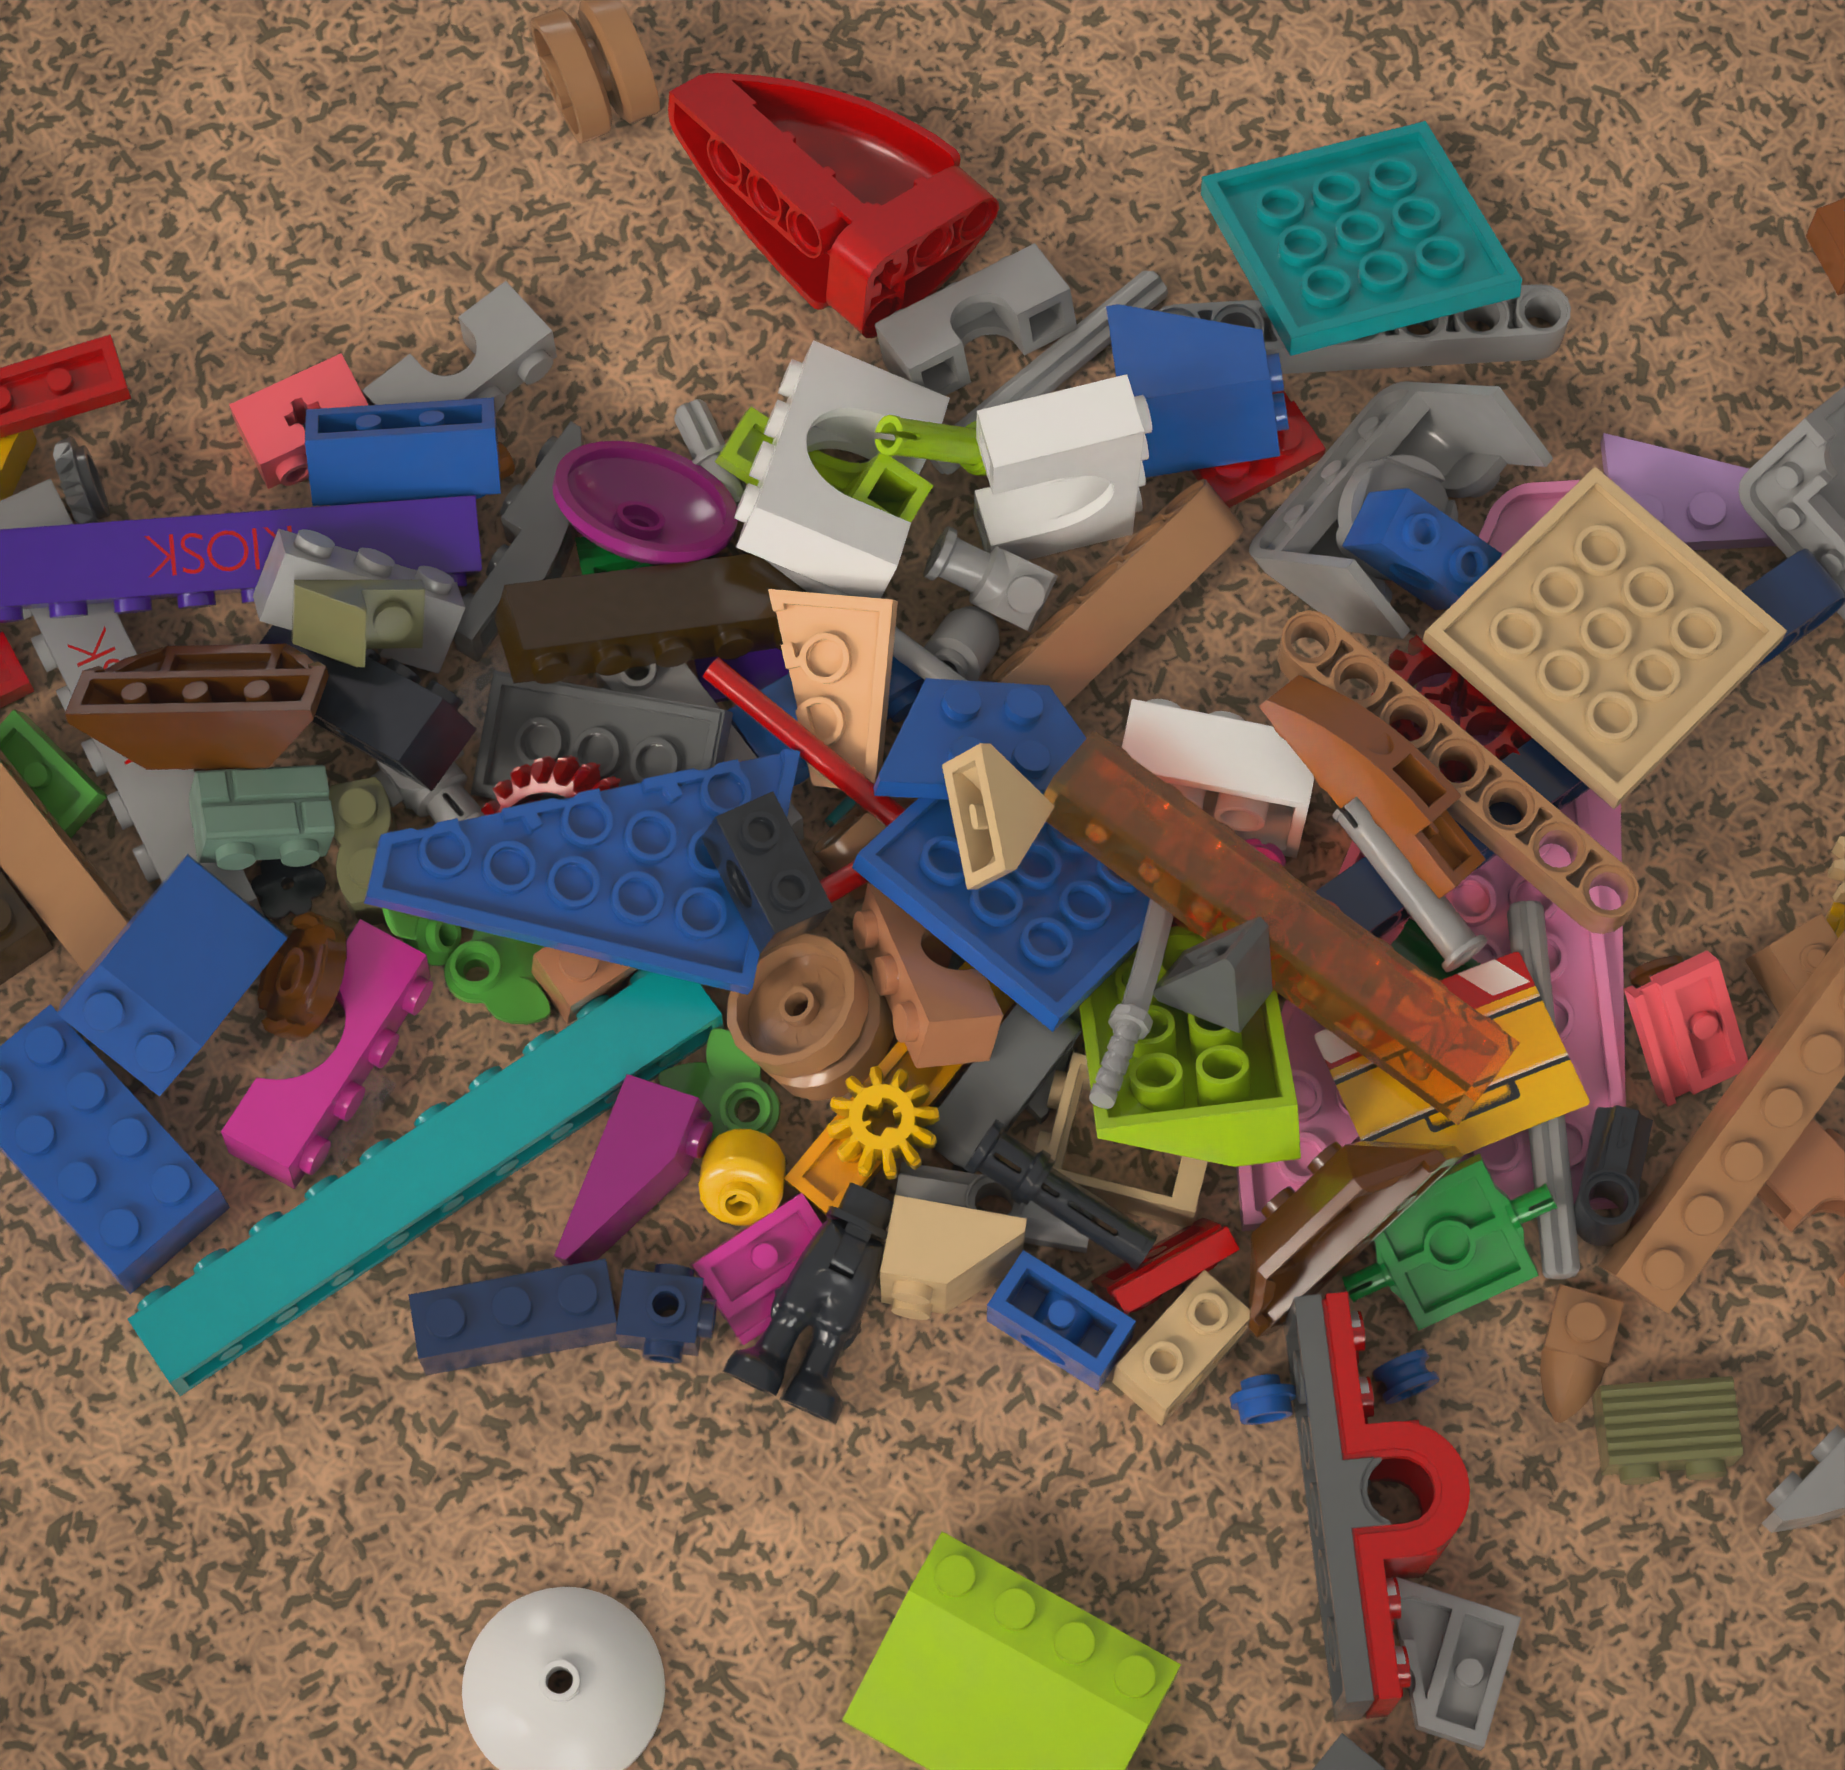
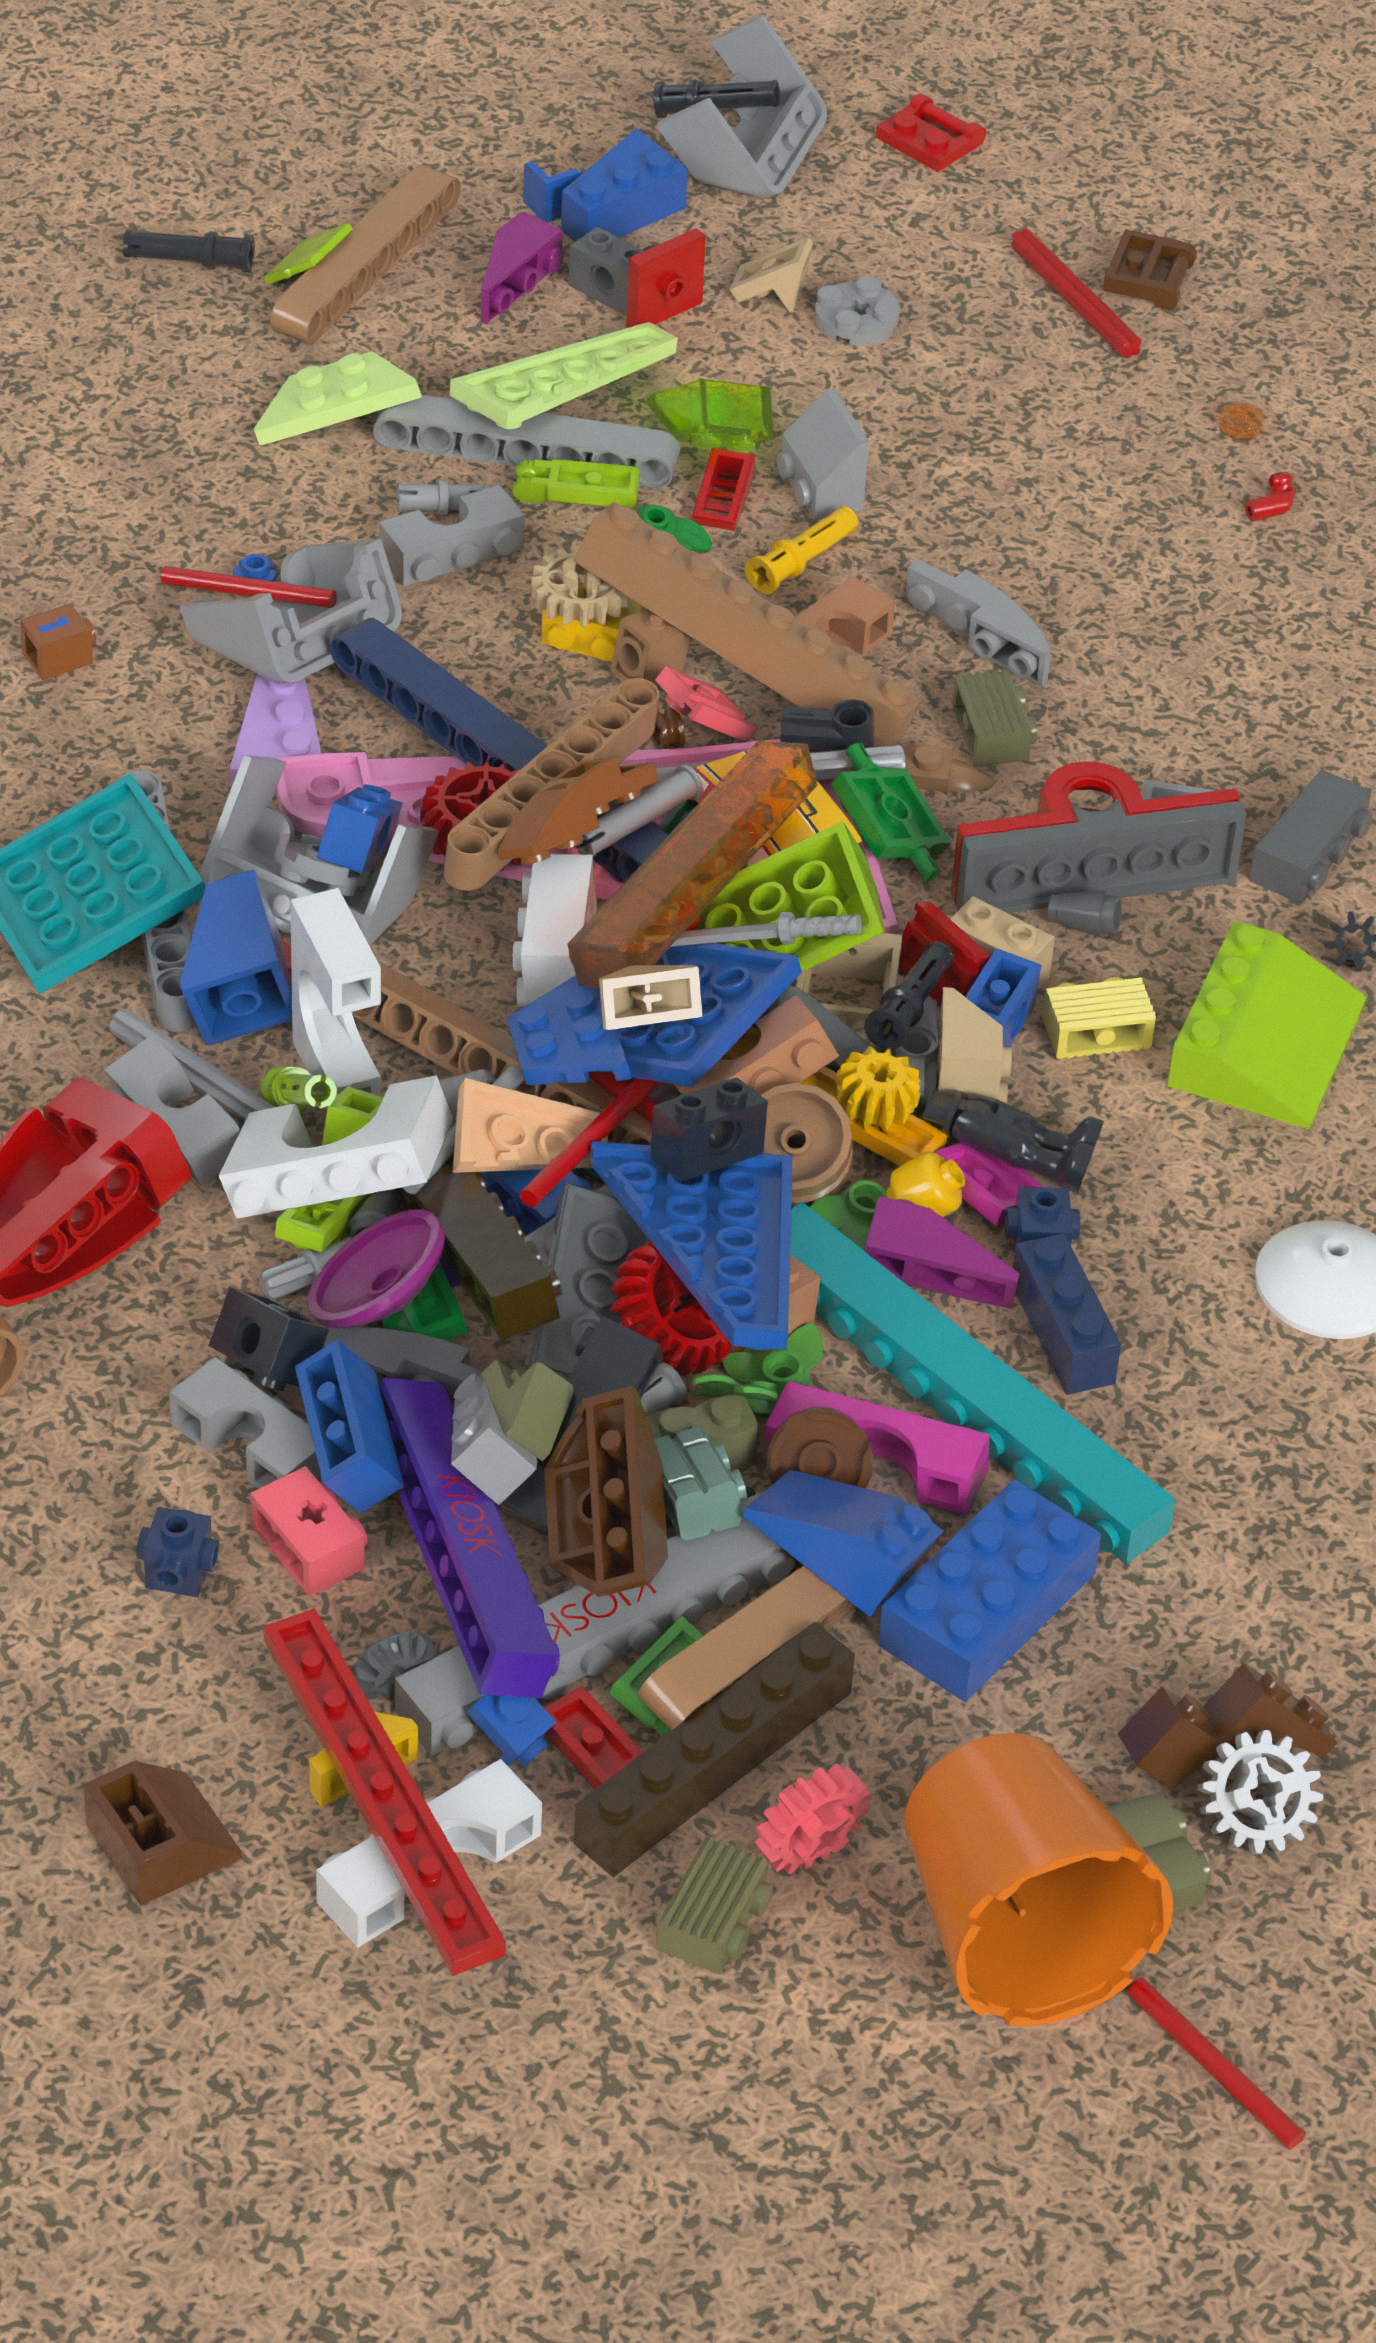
camera: 100 degrees left, 25 degrees down
(289, 284) = (177, 1551): none -> dark blue brick
(569, 386) = (265, 1338): none -> black brick
(995, 580) = (412, 1059): light grey connector -> none
(1052, 1462) = (1098, 1017): none -> light yellow brick
(1222, 976) = (739, 881): dark grey slope -> none
(1263, 1400) = (1025, 907): blue plate -> none
(1263, 1490) = (1087, 911): none -> dark grey cone
(1333, 1219) = (903, 839): reddish brown wedge -> none
(1604, 637) = (430, 716): tan plate -> none

